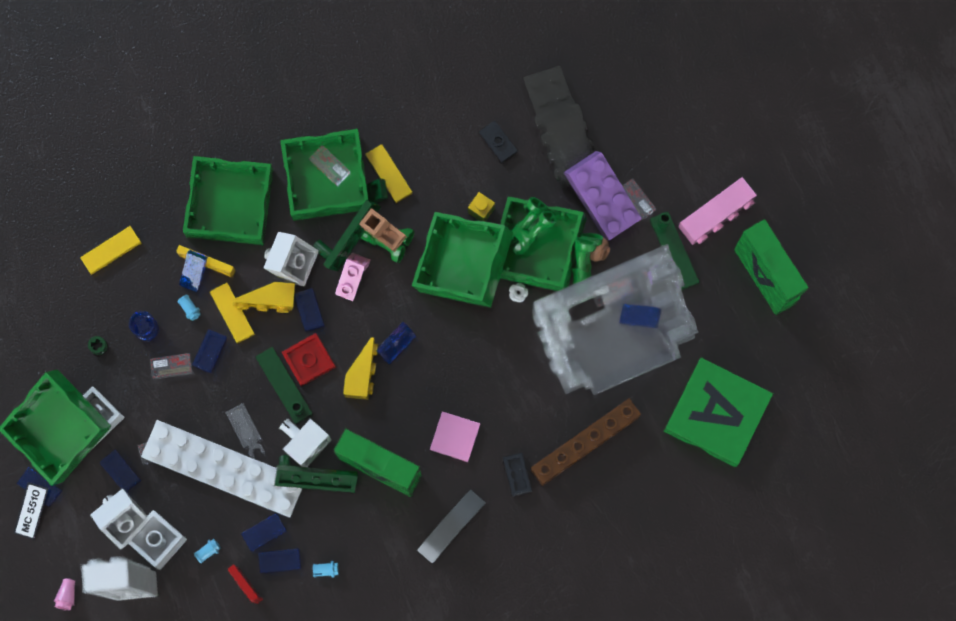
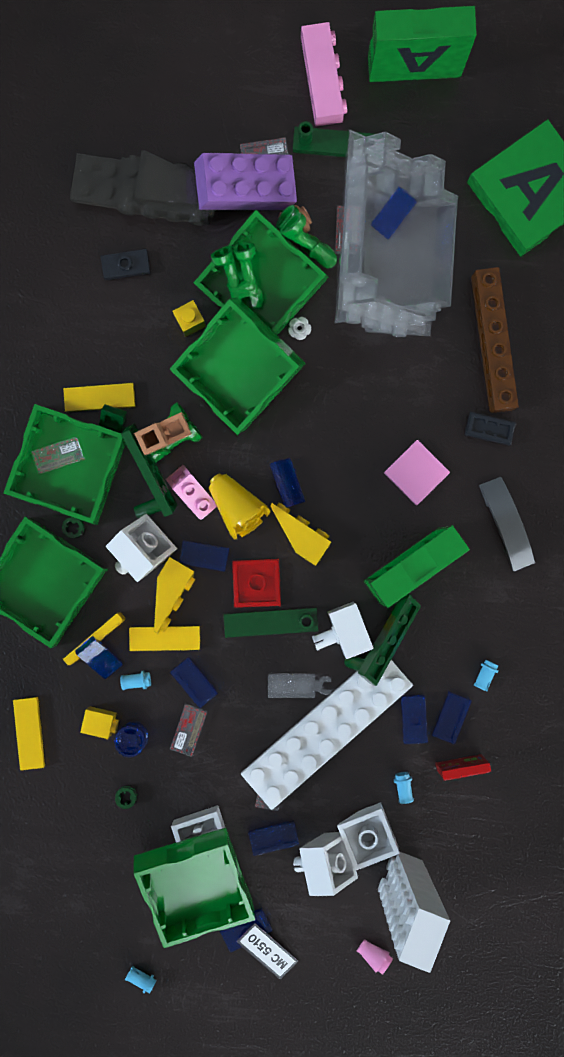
camera: 65 degrees left, 10 degrees up
(144, 296) = (99, 722): none -> yellow brick
(280, 198) = (65, 525): none -> dark green bush
(358, 314) = (237, 505): none -> yellow cone

